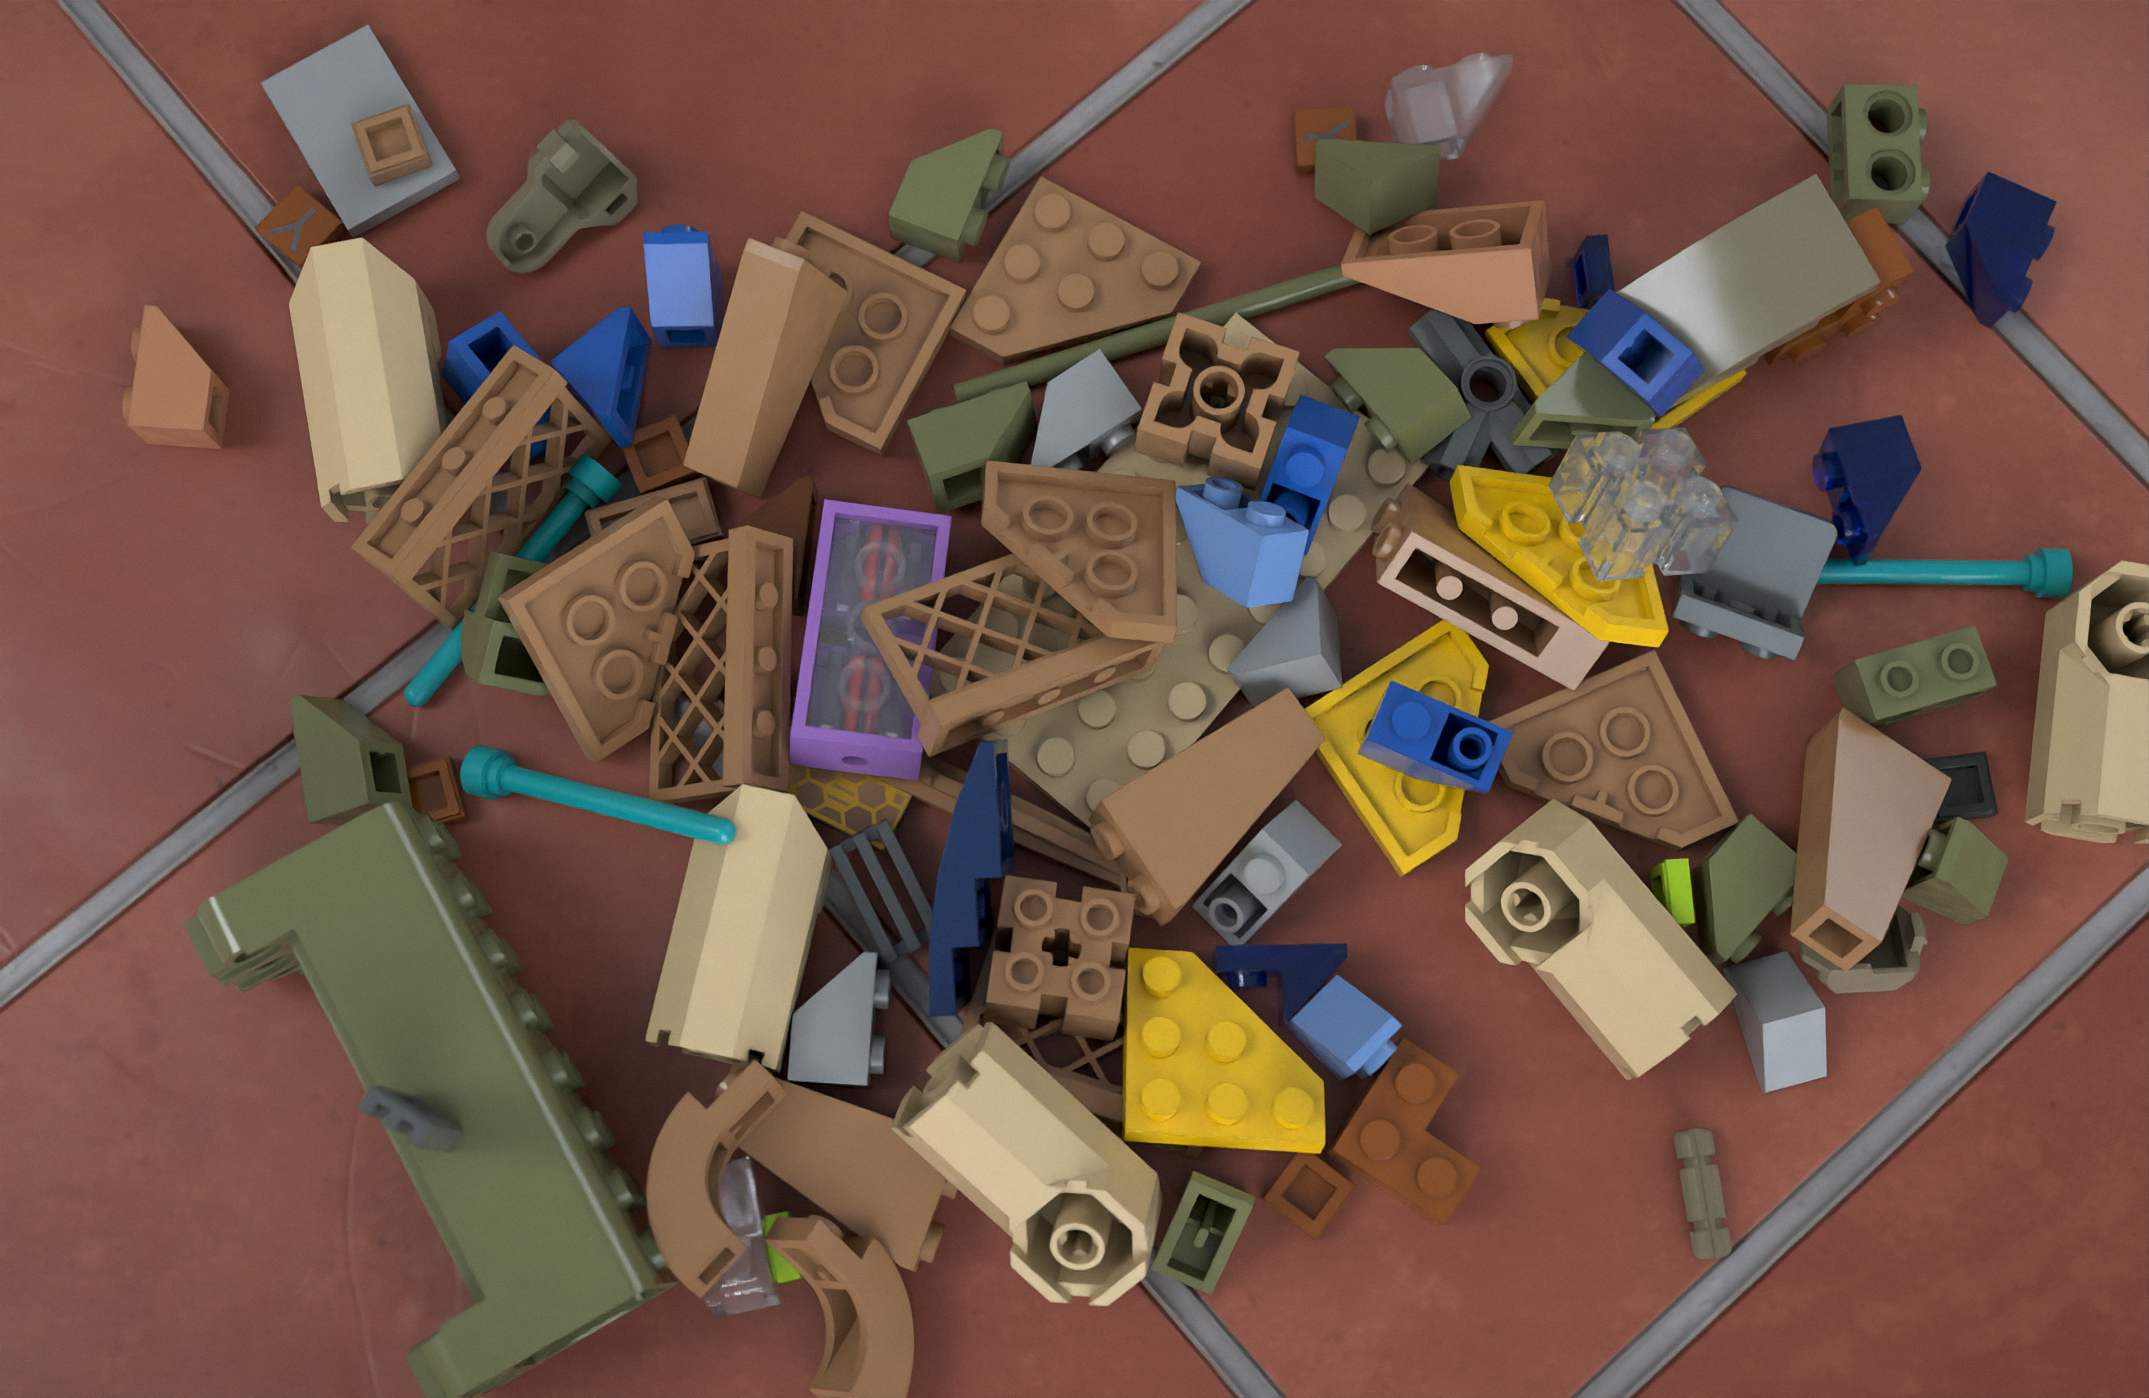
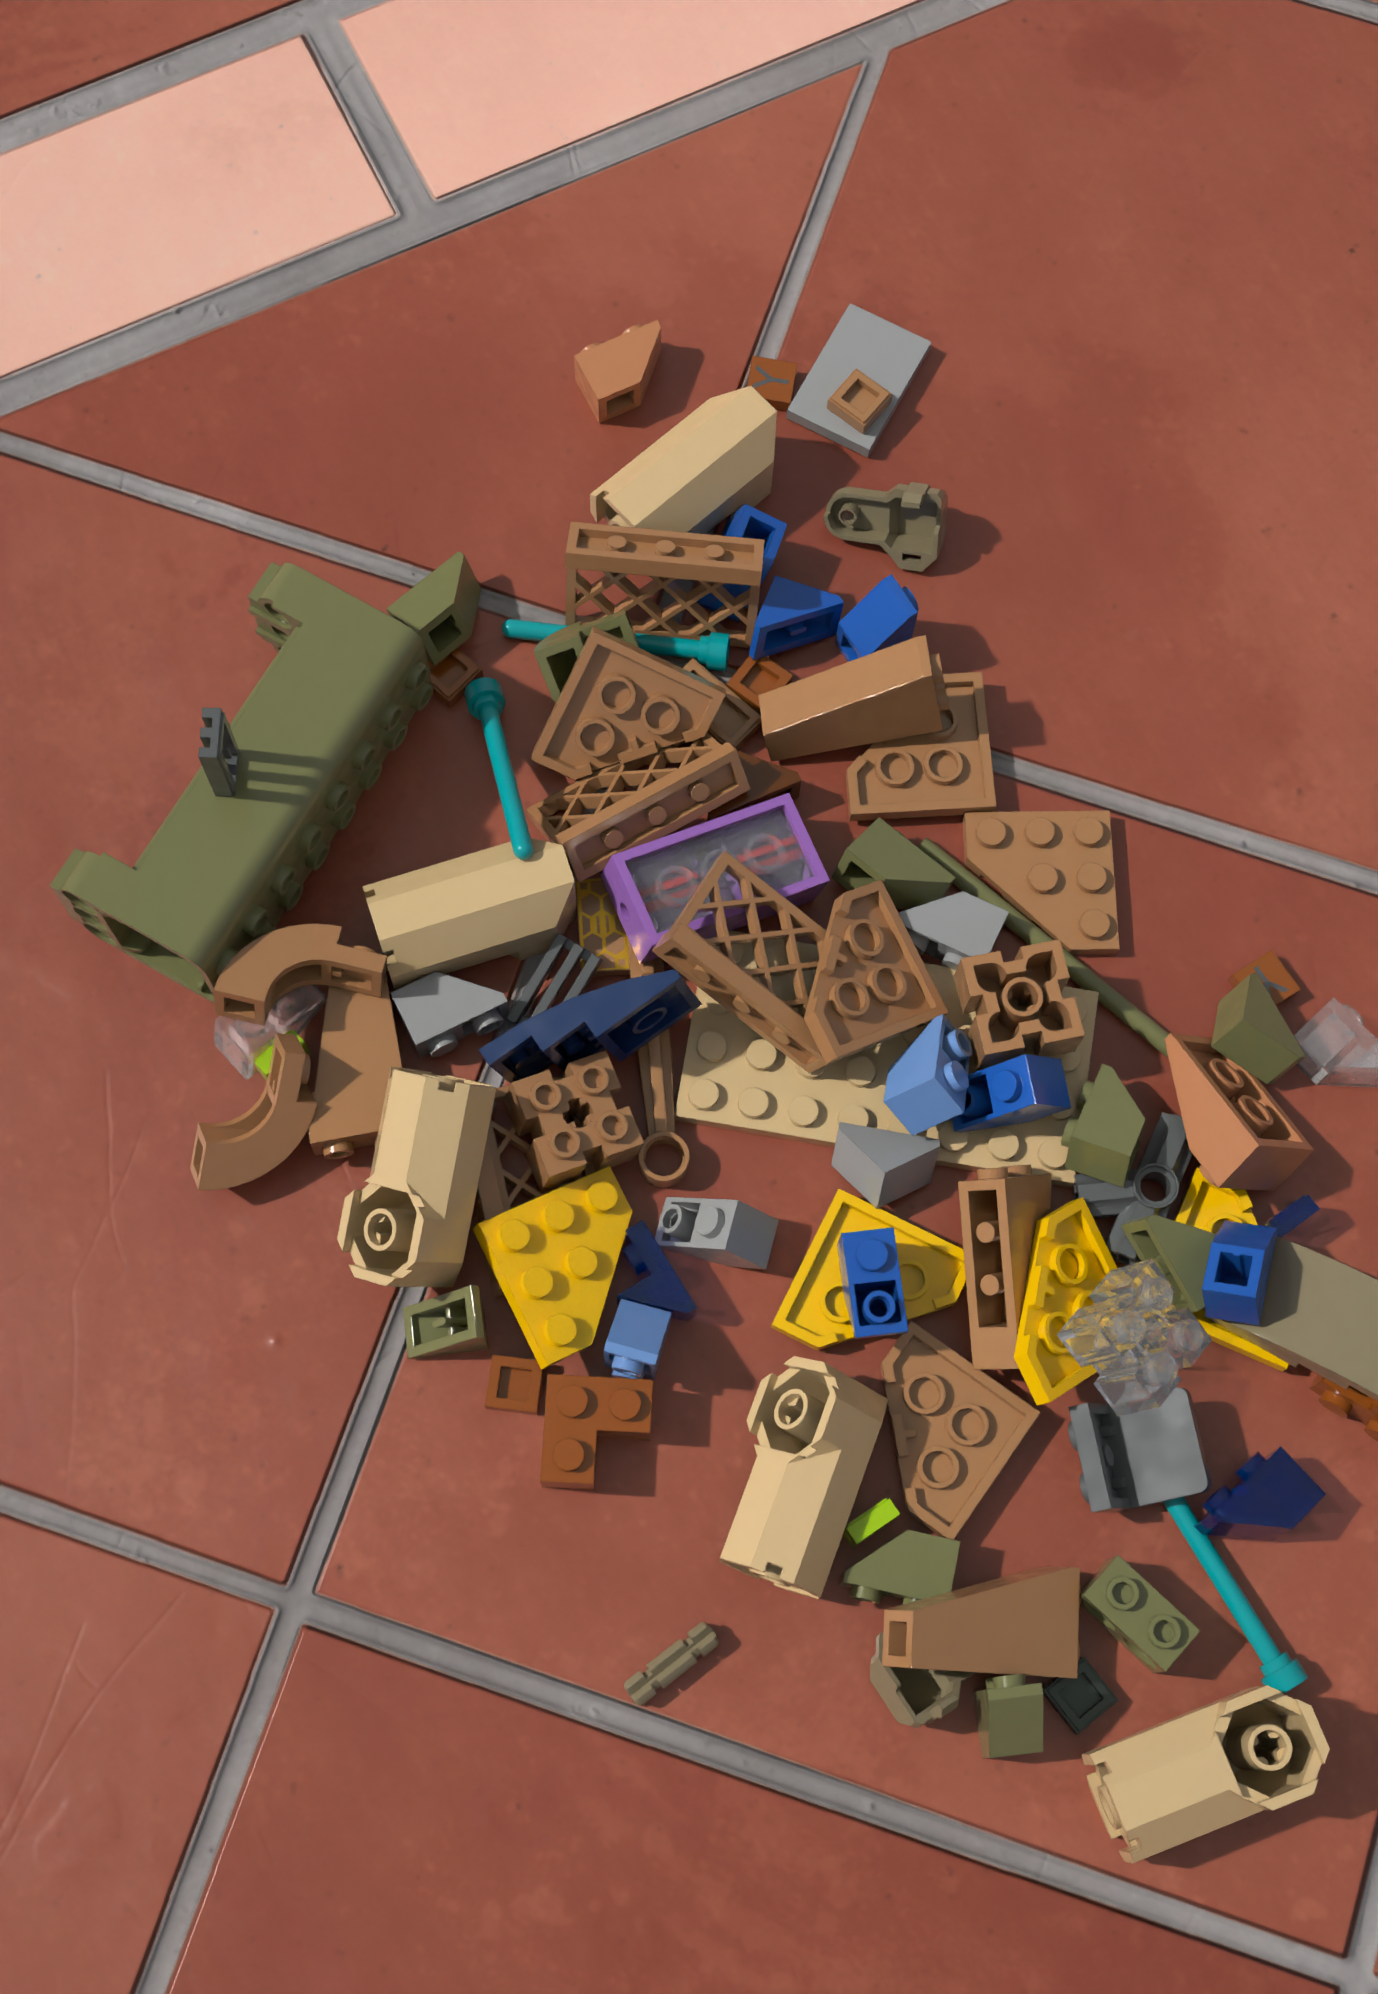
camera: 60 degrees right, 5 degrees down
(945, 195) = (1056, 757): olive slope -> none
(1196, 806) = (734, 1155): medium nougat slope -> none
(1779, 1021) = (826, 1652): light grey slope -> none

